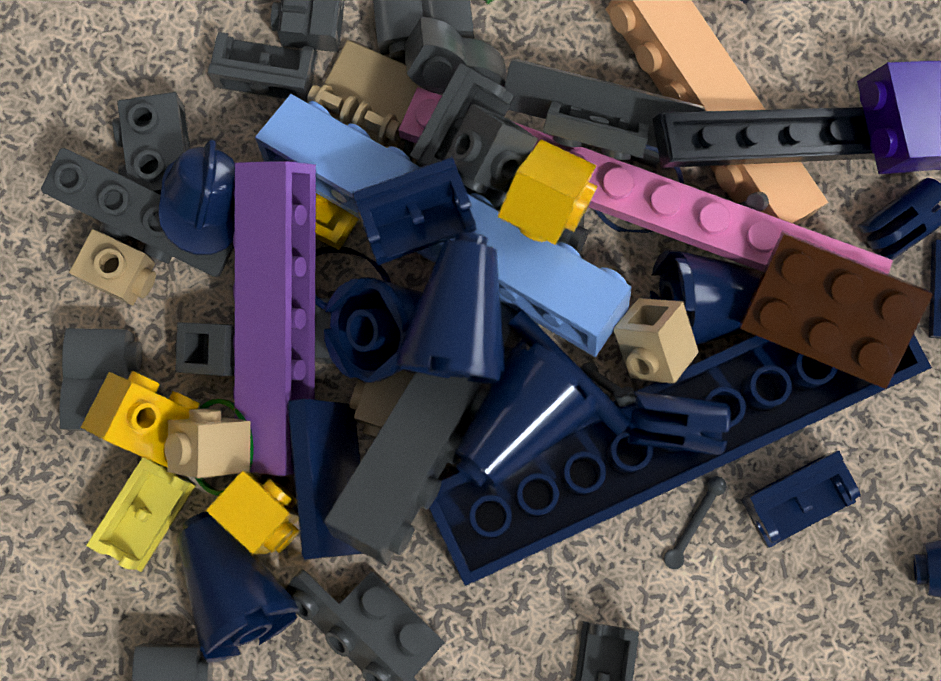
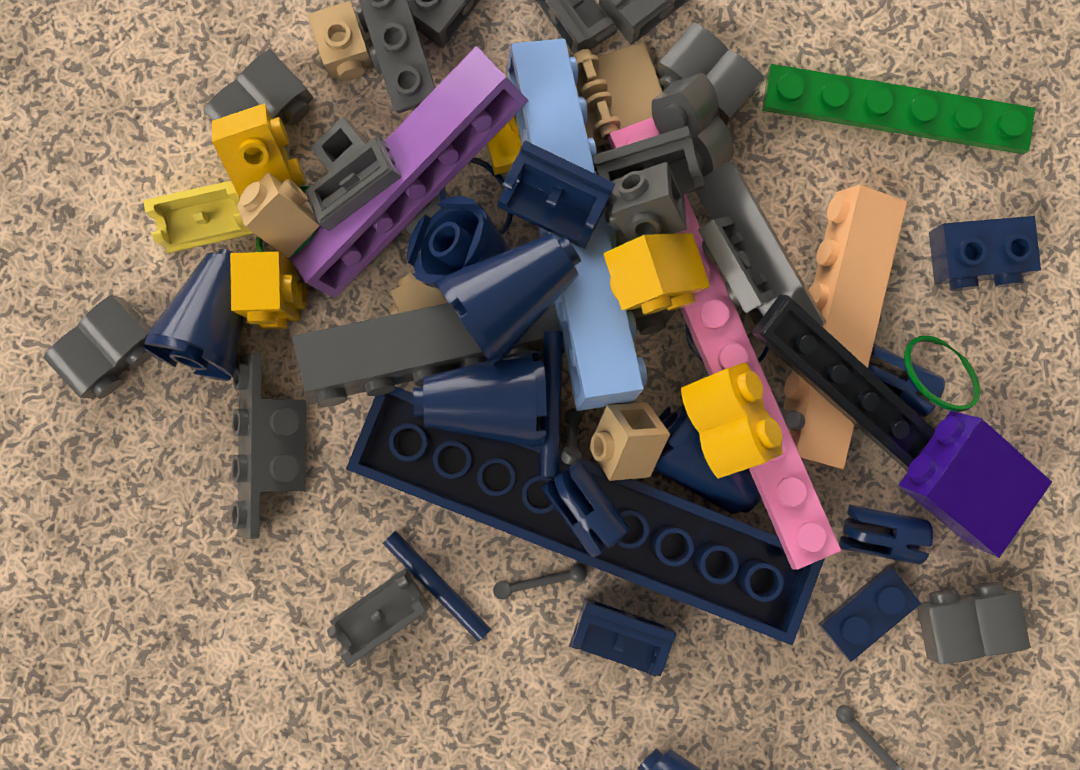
camera: 45 degrees right, 5 degrees up
(199, 200) = (430, 48): dark blue piece -> none
(251, 364) = (355, 189): none -> dark grey tile
(323, 462) = (347, 292): dark blue tile -> none
(622, 609) = (437, 586): none -> dark blue bar
(717, 245) = (732, 420): none -> yellow brick
(805, 90) = (903, 384): none -> dark blue arm
(823, 85) = (976, 386): none -> green piece
(835, 309) = (767, 543): reddish brown plate -> none

